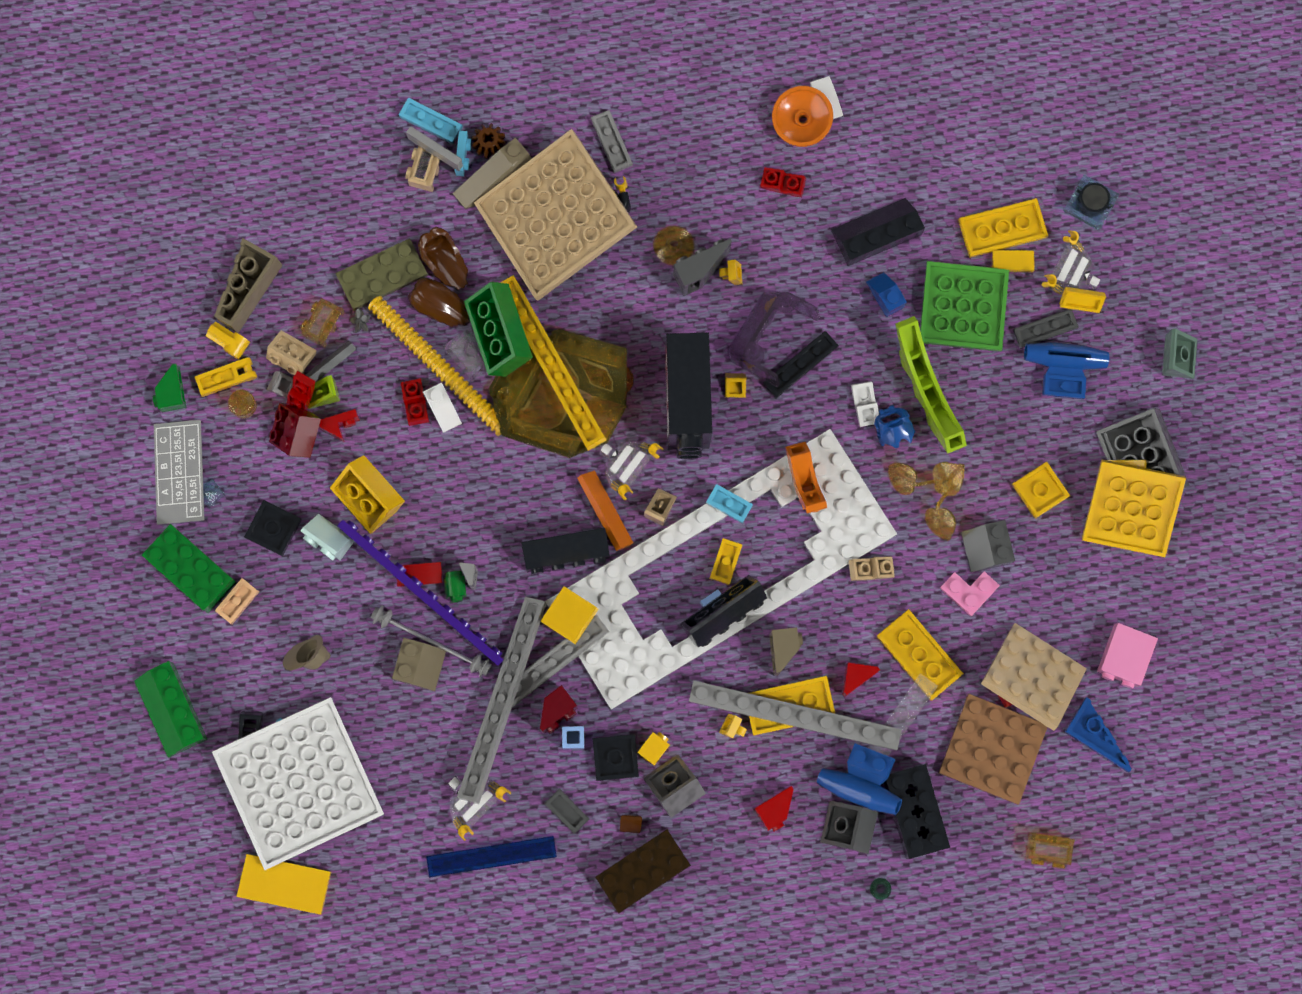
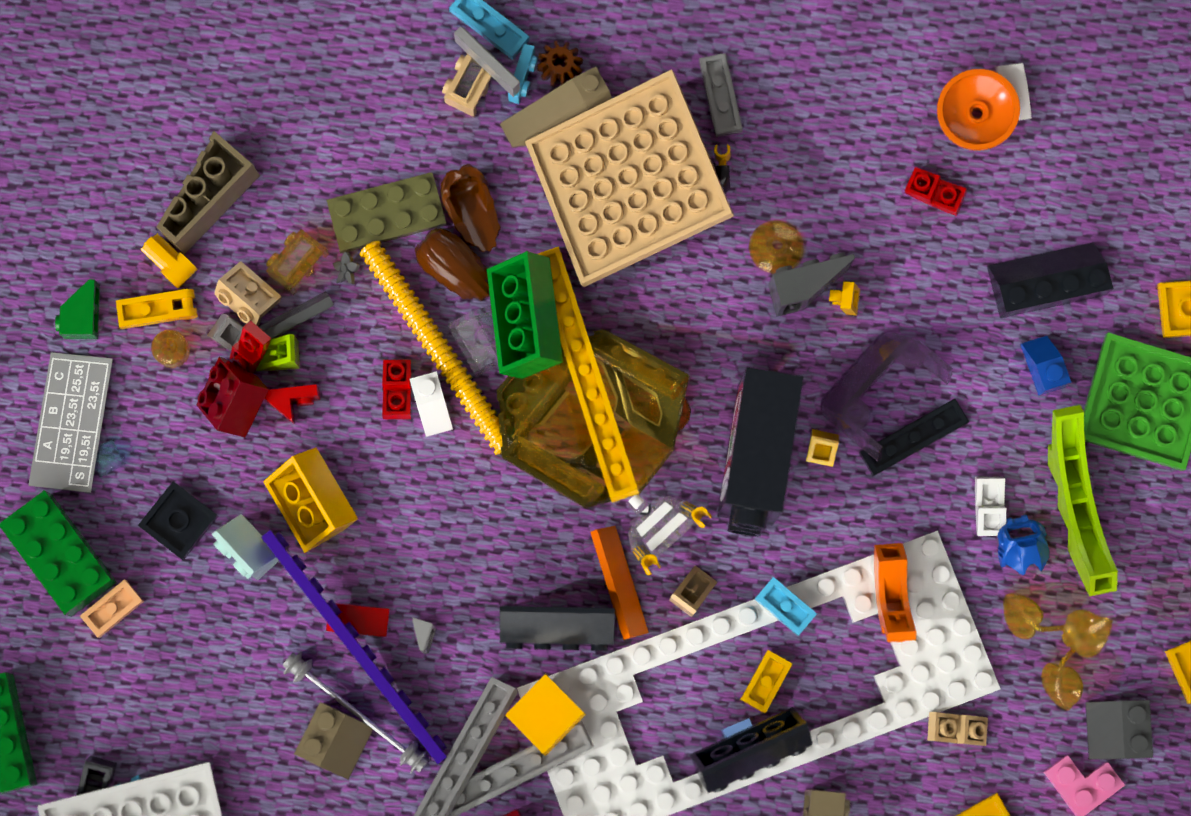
camera: 10 degrees right, 0 degrees up
(307, 654) = (188, 697): dark tan piece -> none
(454, 586) = (401, 645): green brick -> none

